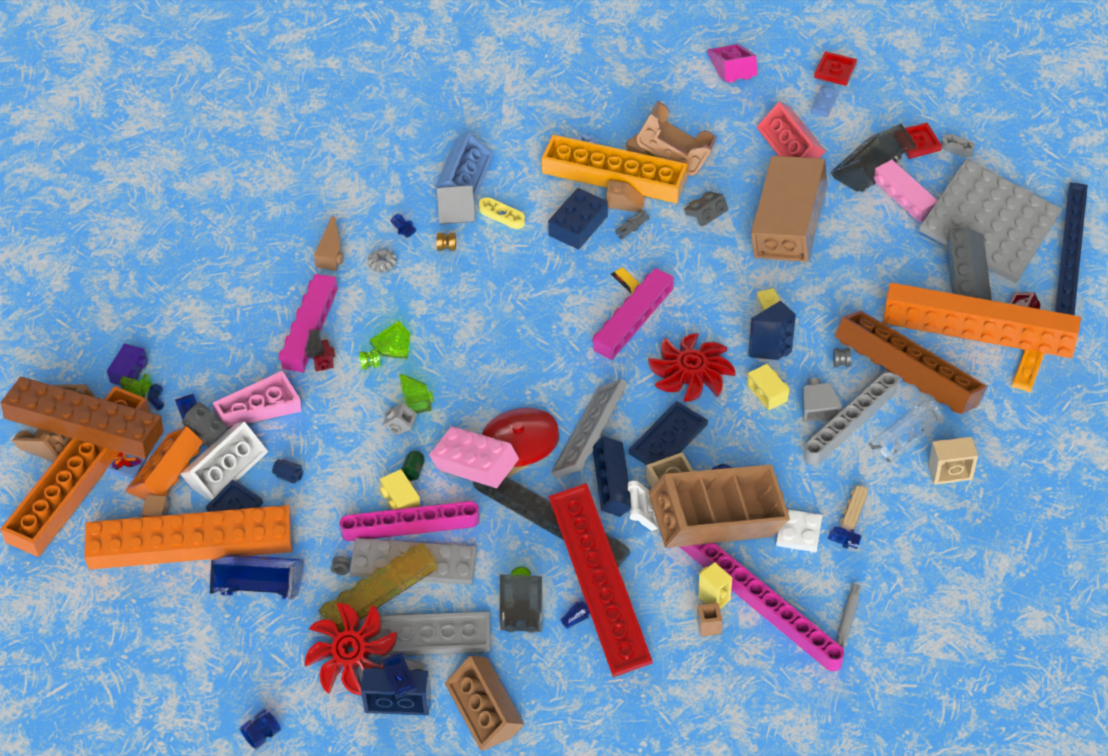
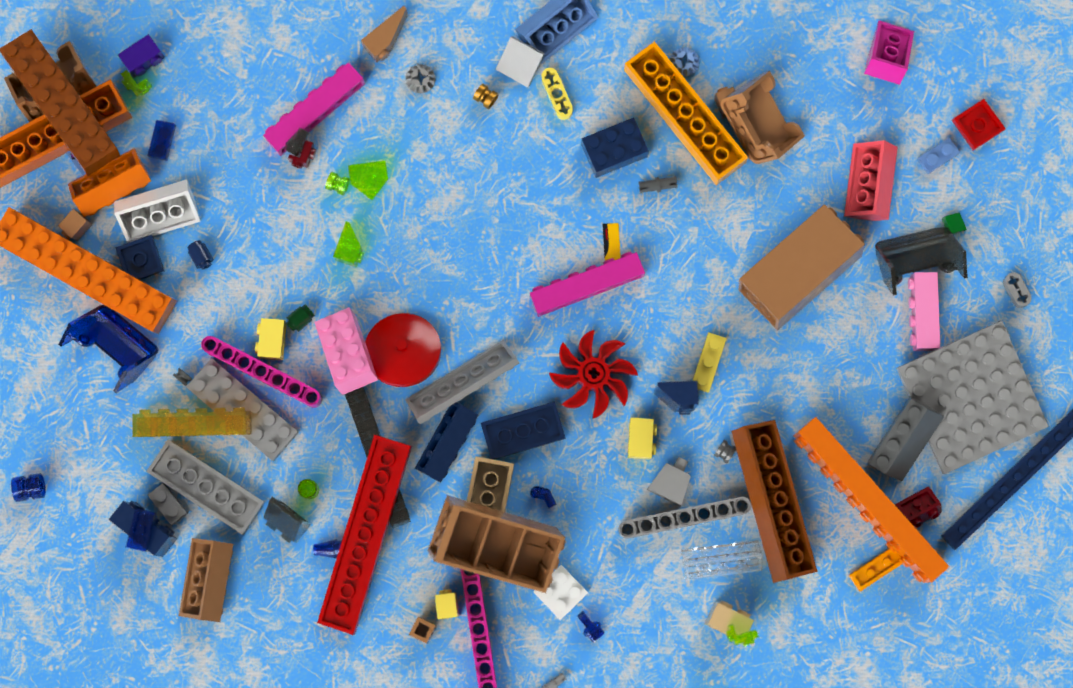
camera: 35 degrees right, 30 degrees up
(153, 394) = (144, 101): clear blue arm -> none
(204, 424) = (159, 166): dark grey bracket -> none
(259, 402) = (227, 171): bright pink wedge -> none
(342, 641) = (135, 466): red piece -> none
(399, 419) = (318, 265): light grey brick -> none
(404, 228) = (462, 57): clear blue piece -> none
(624, 197) = (672, 150): medium nougat slope -> none
(641, 505) = (455, 487): white plate -> none
(707, 207) = (736, 209): dark grey bracket -> none
(855, 508) = (618, 605): tan piece -> none
(871, 130) = (954, 223): none -> green slope
(924, 139) = (985, 260): red plate -> none
(971, 450) = (746, 638): none -> clear neon green bracket

